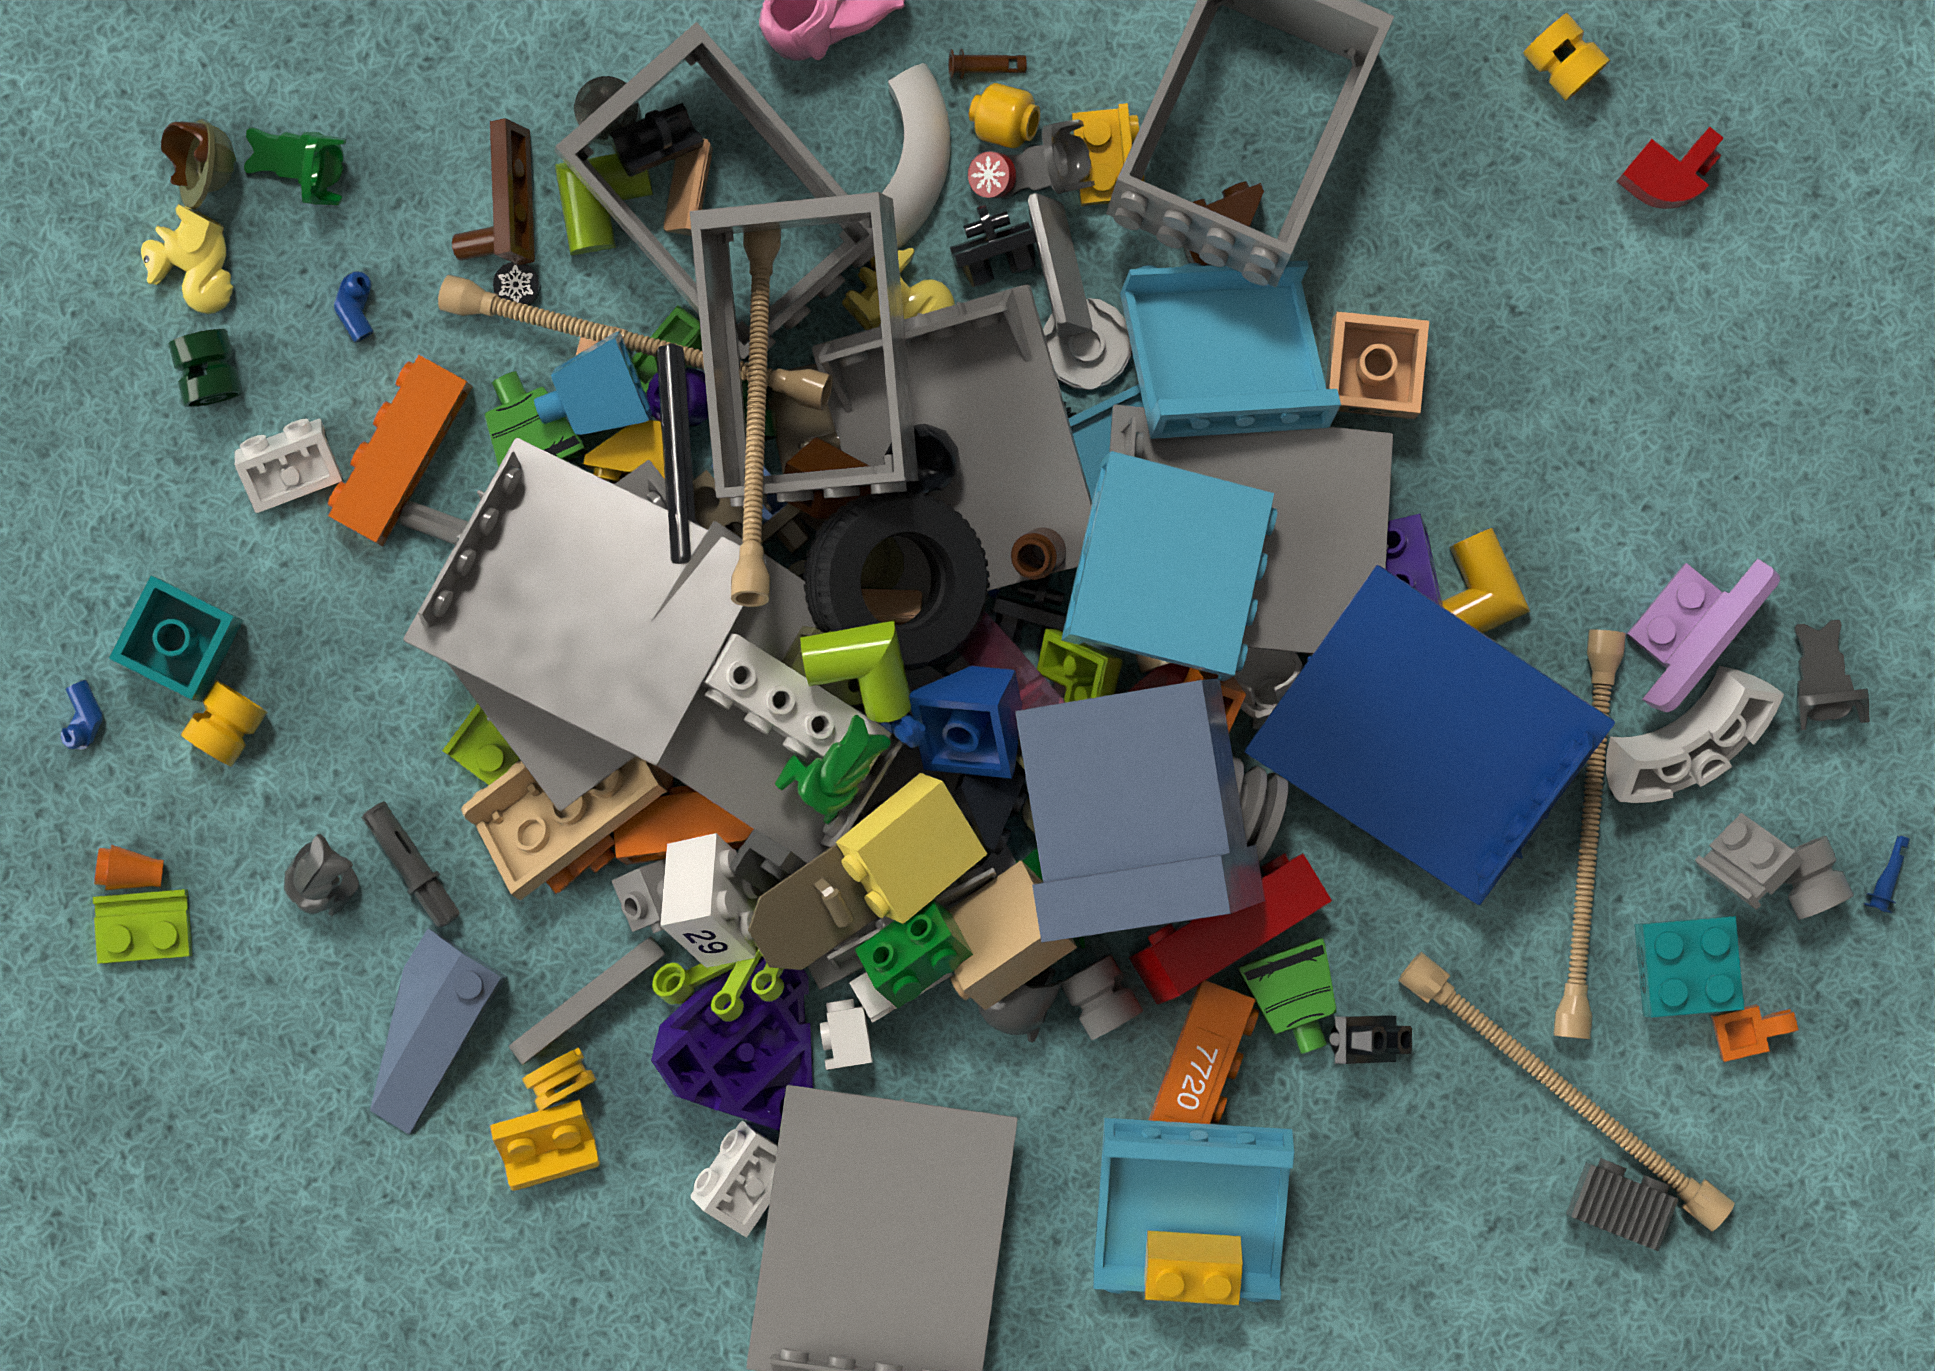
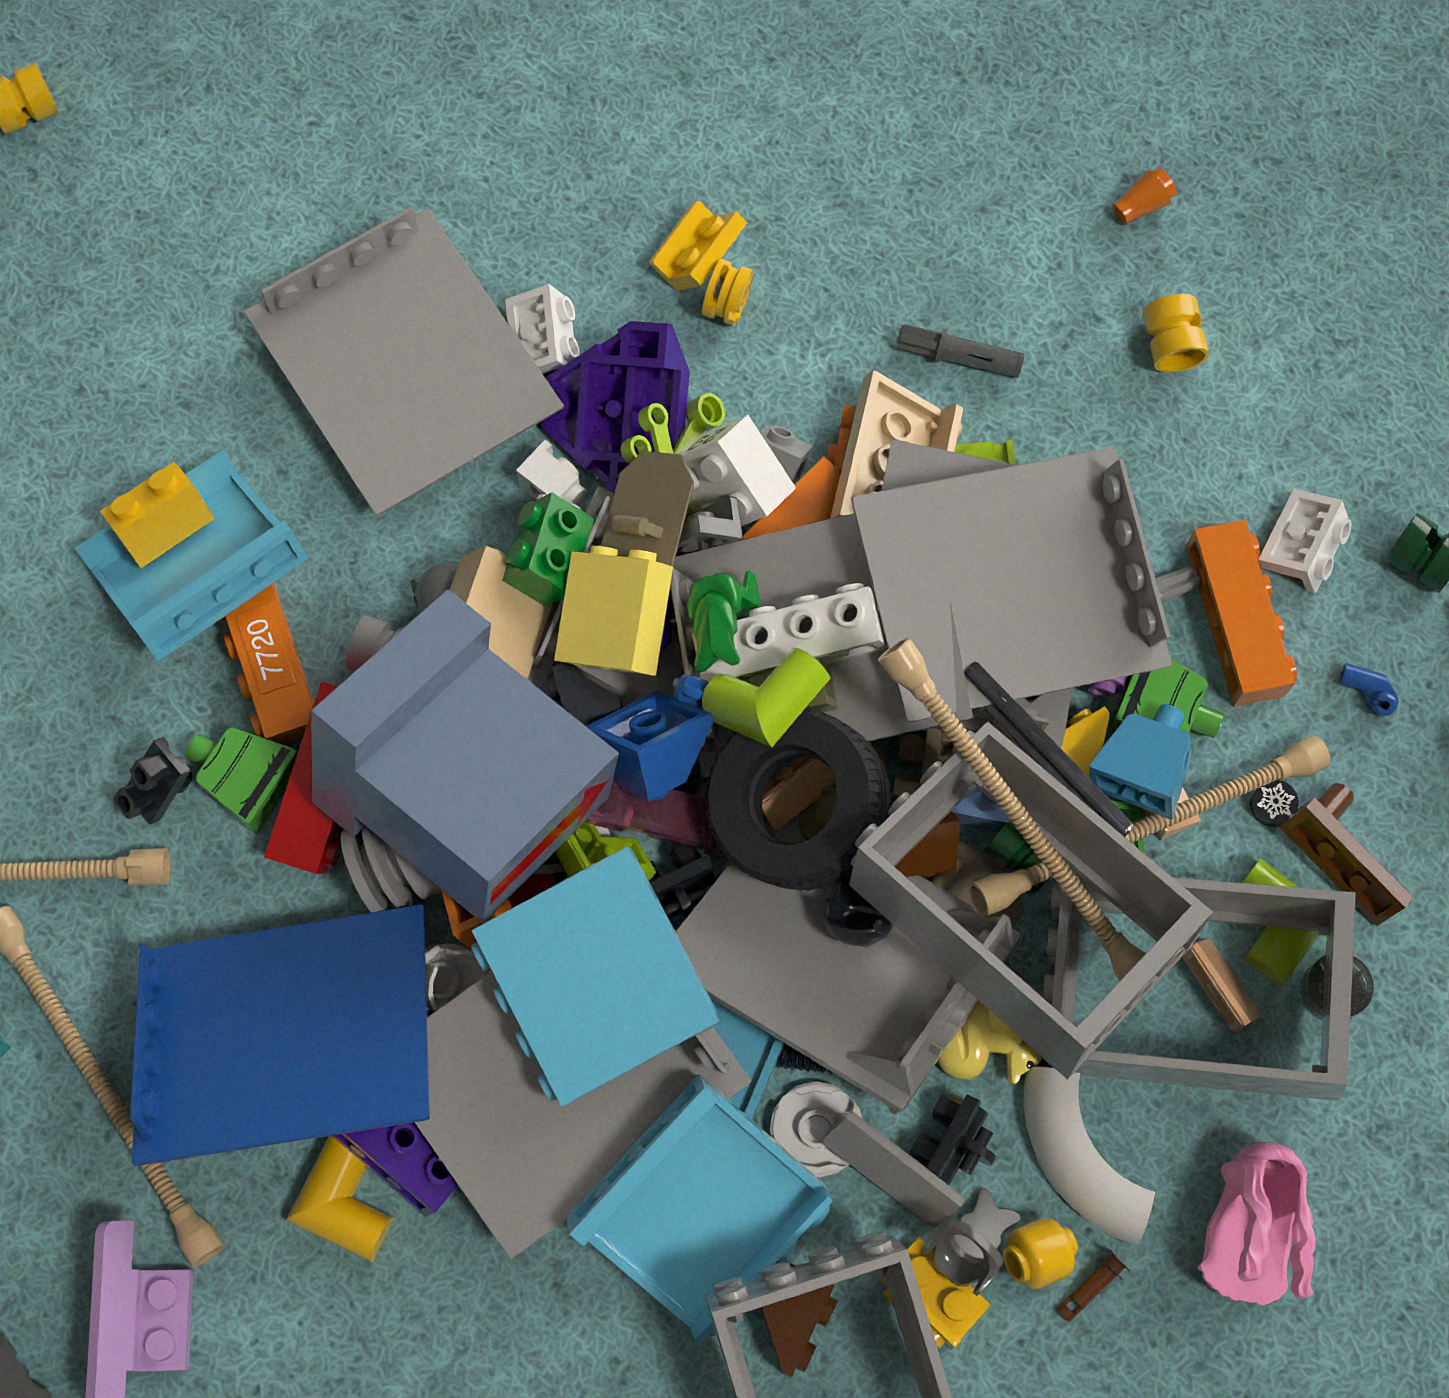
camera: 135 degrees right, 15 degrees down
(86, 719) = (1266, 266): blue arm -> none
(142, 926) = (1098, 174): lime plate -> none
(176, 639) = (1263, 357): teal brick -> none
(314, 878) = (1012, 276): dark grey hair -> none
(433, 1017) = (850, 273): sand blue wedge -> none
(586, 1000) = (758, 352): light grey beam -> none
(655, 139) = (1283, 986): black hips -> none
(991, 174) = (1007, 1197): tile -> none
(1026, 561) = (709, 915): reddish brown brick -> none
(1377, 364) = (570, 1308): light nougat brick -> none
(1696, 744) = (61, 1227): white brick -> none

